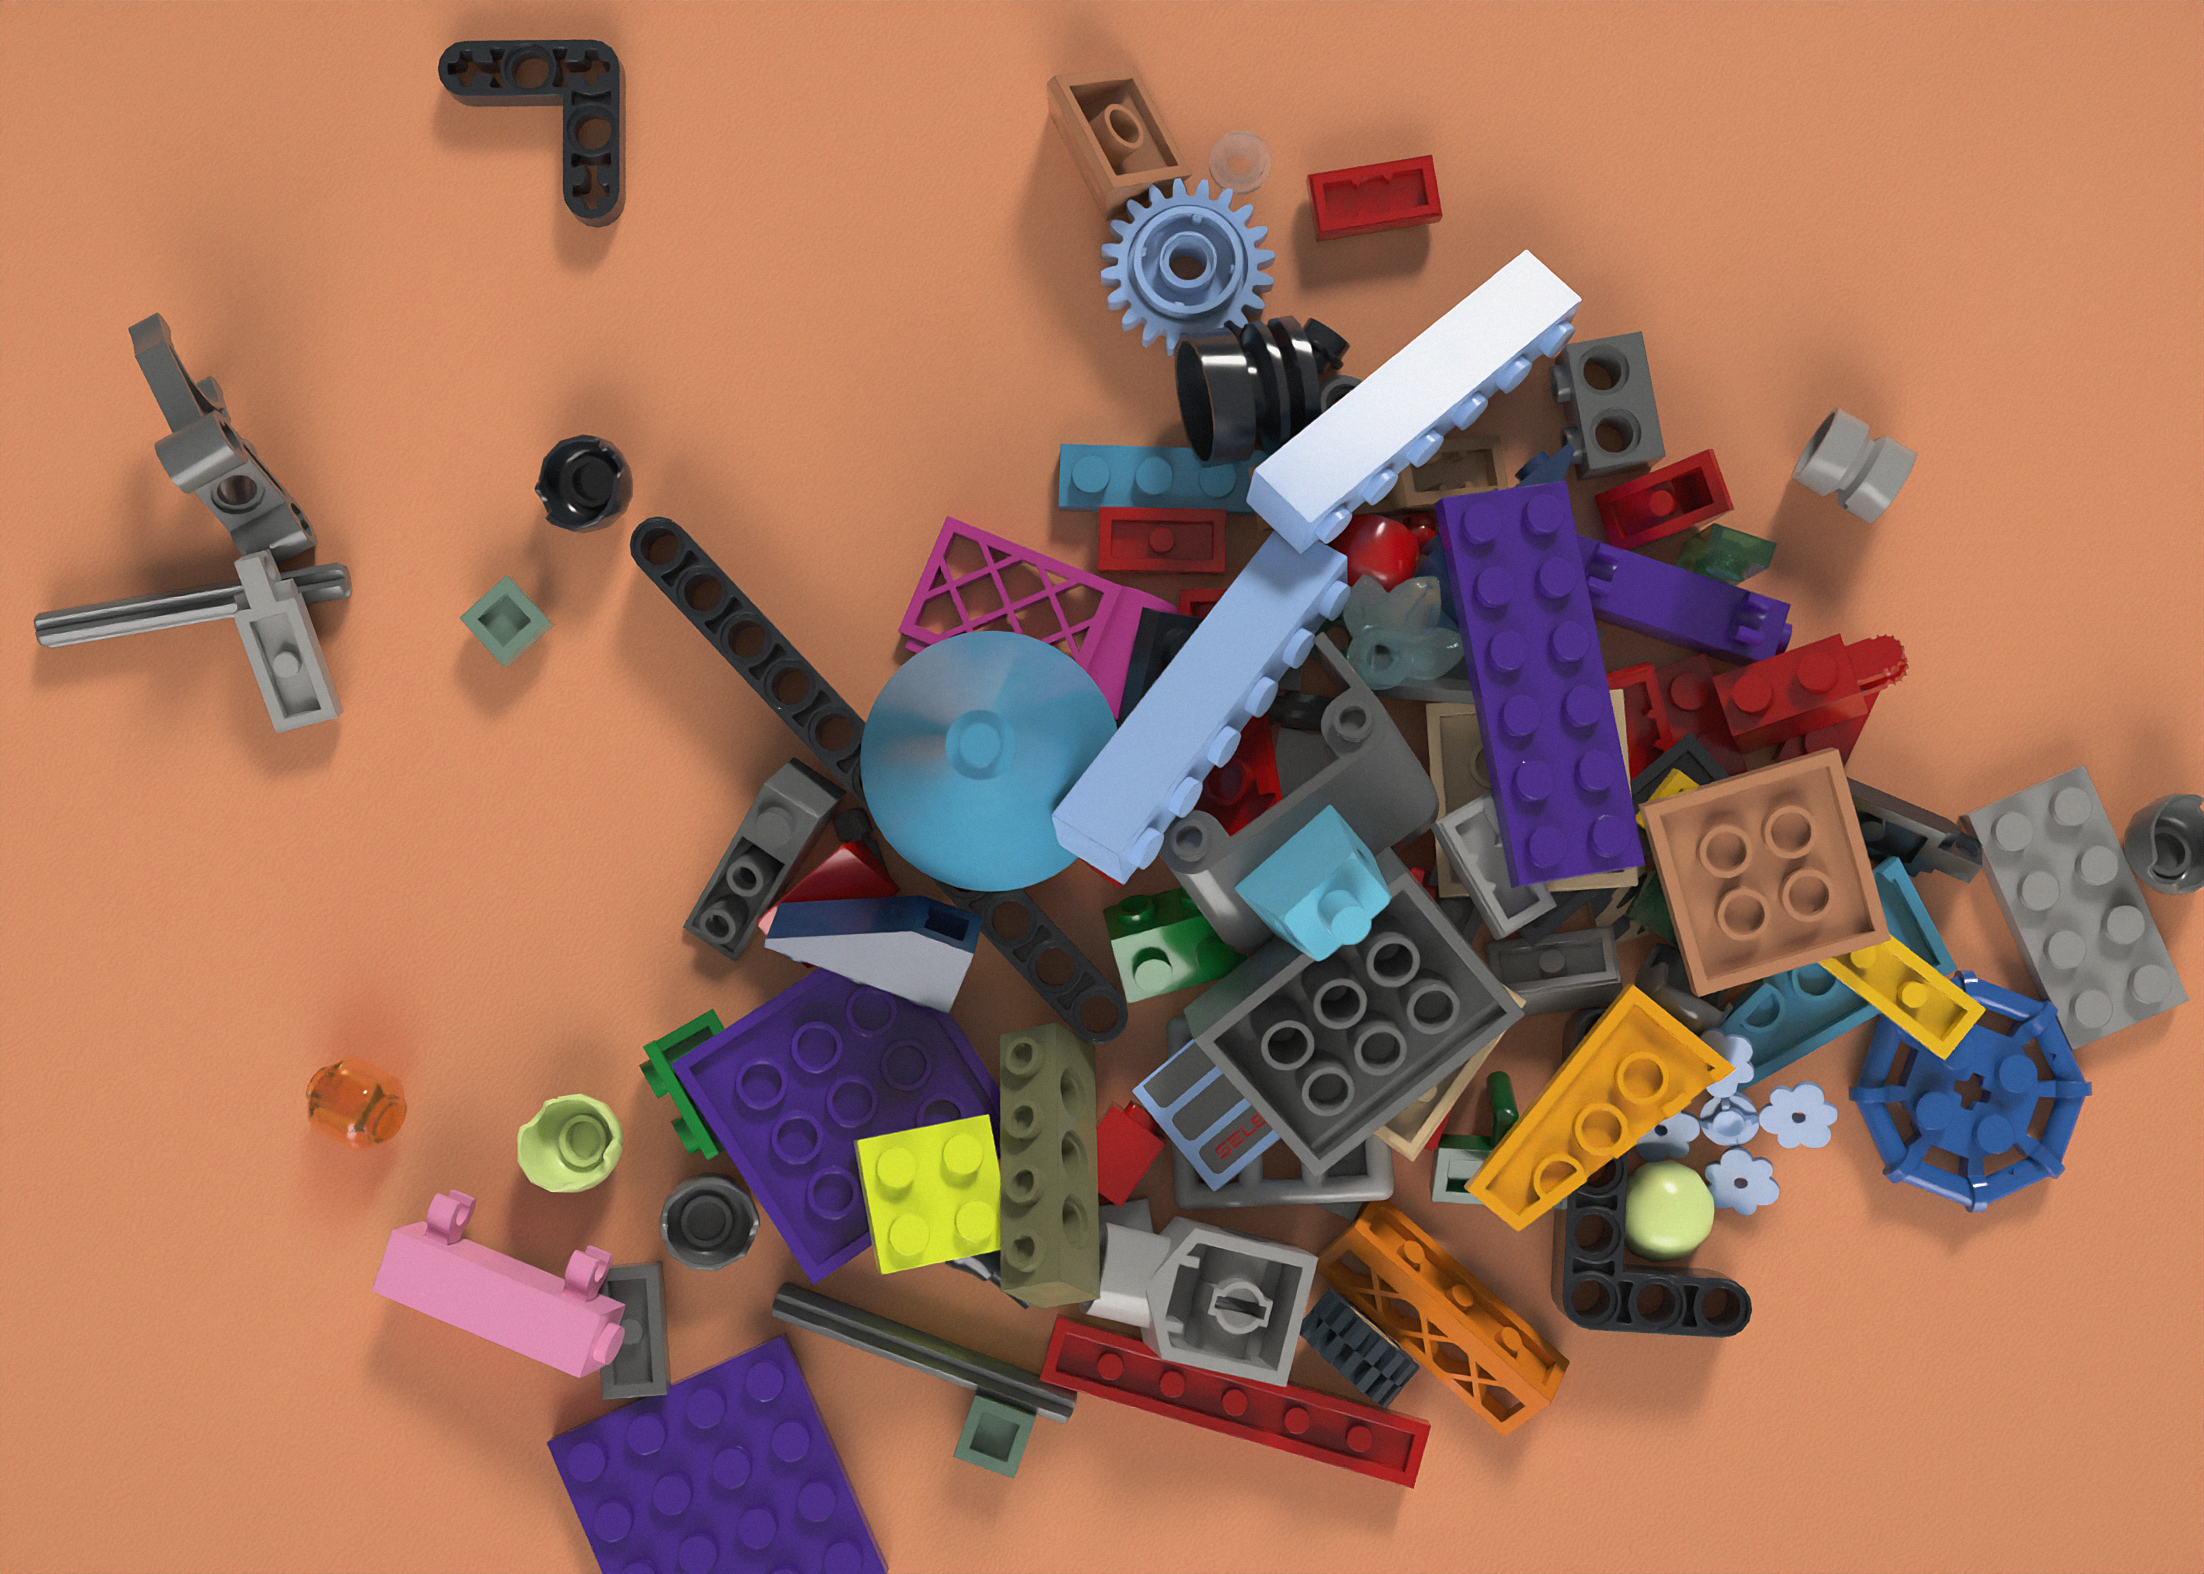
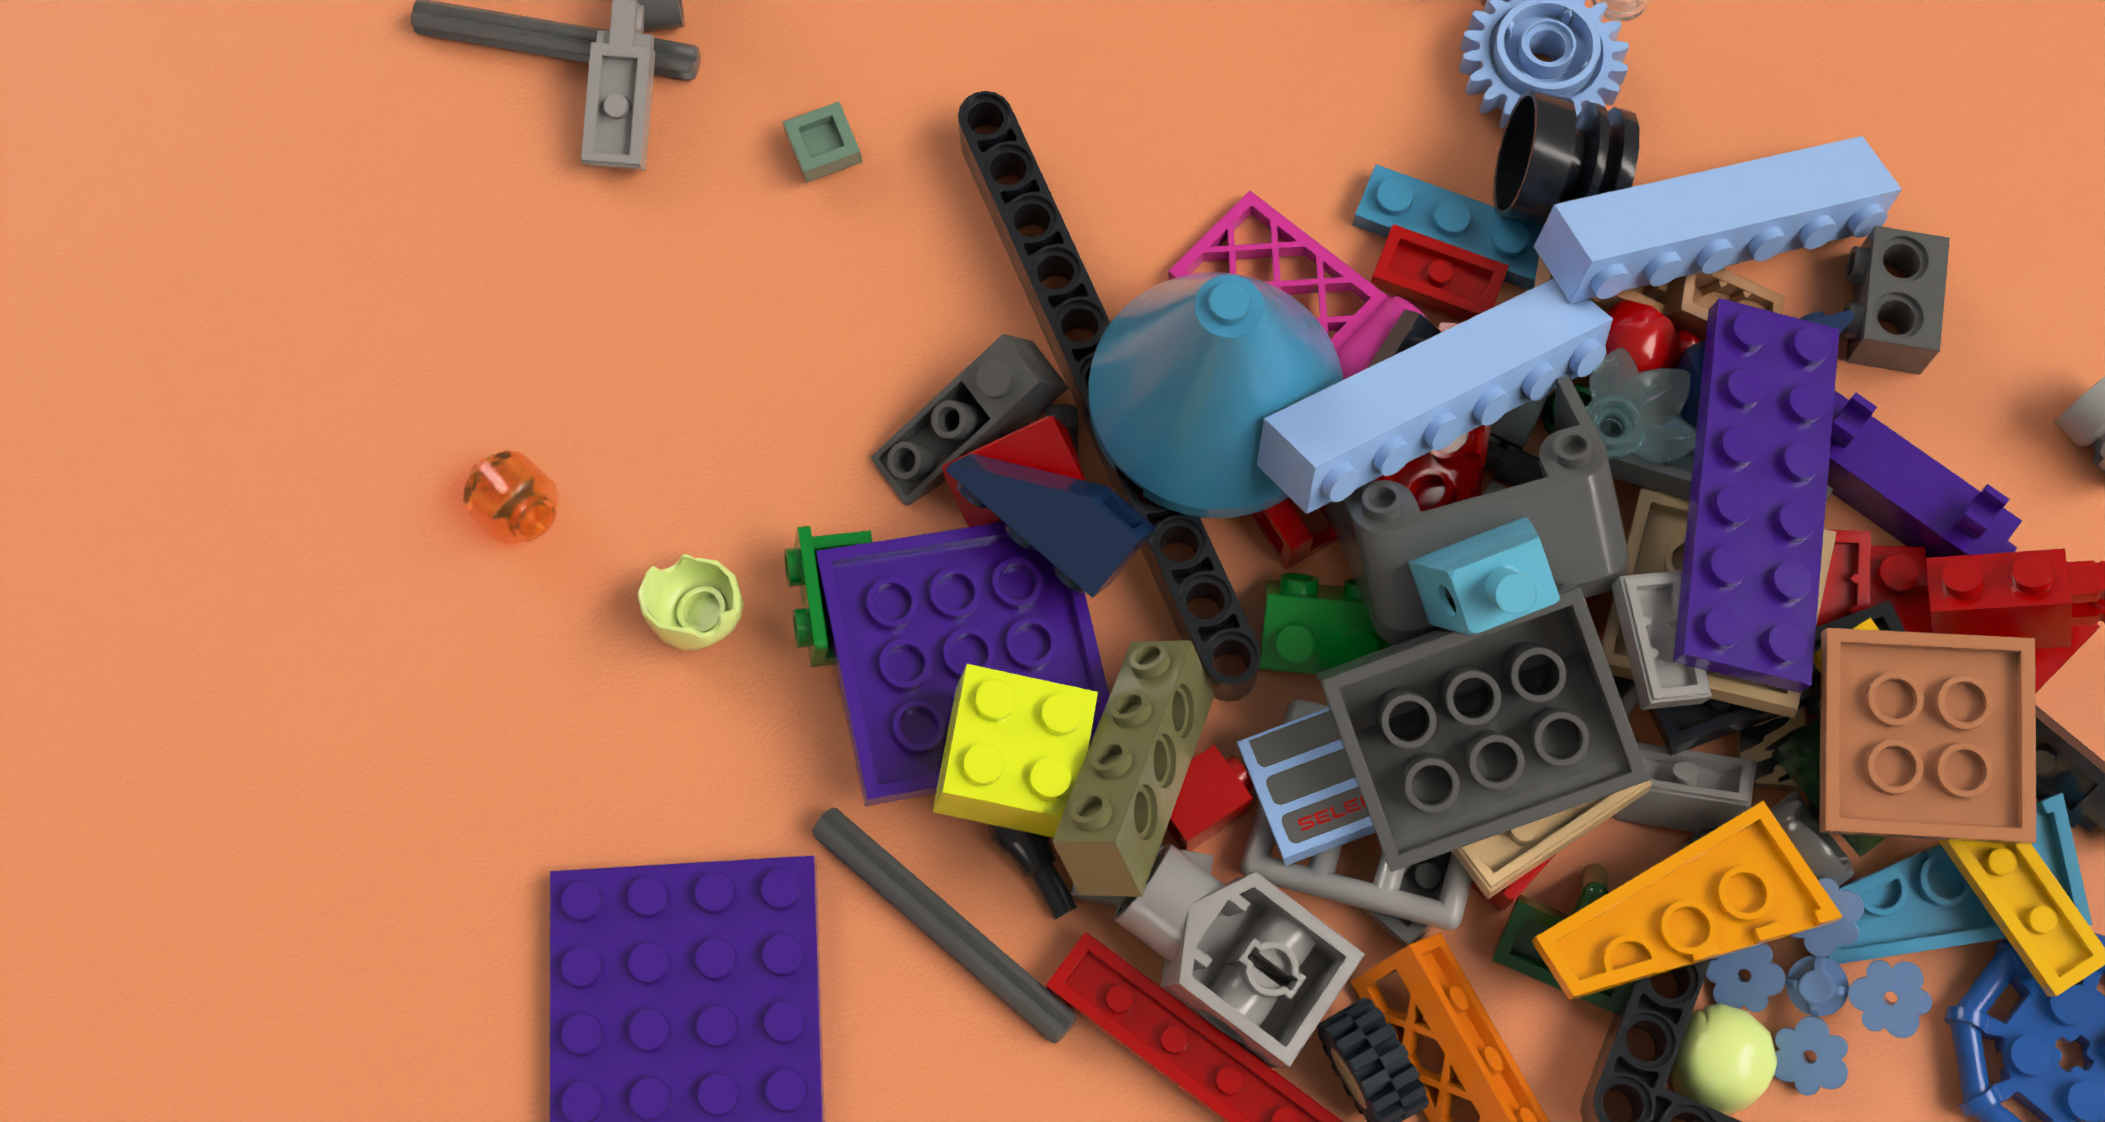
camera: 20 degrees right, 15 degrees down
(499, 1296) = (568, 712): bright pink brick -> none
(584, 484) = (939, 52): black hair -> none
(643, 1358) = (675, 796): dark grey plate -> none
(709, 1221) = (789, 717): dark grey hair -> none
(994, 1435) = (981, 1025): sand green plate -> none
(1326, 345) = (1651, 162): black plate -> none
(1374, 198) = (1733, 59): red plate -> none
(1665, 502) = (1933, 393): red slope -> none
(1725, 554) = (1977, 448): clear green plate -> none

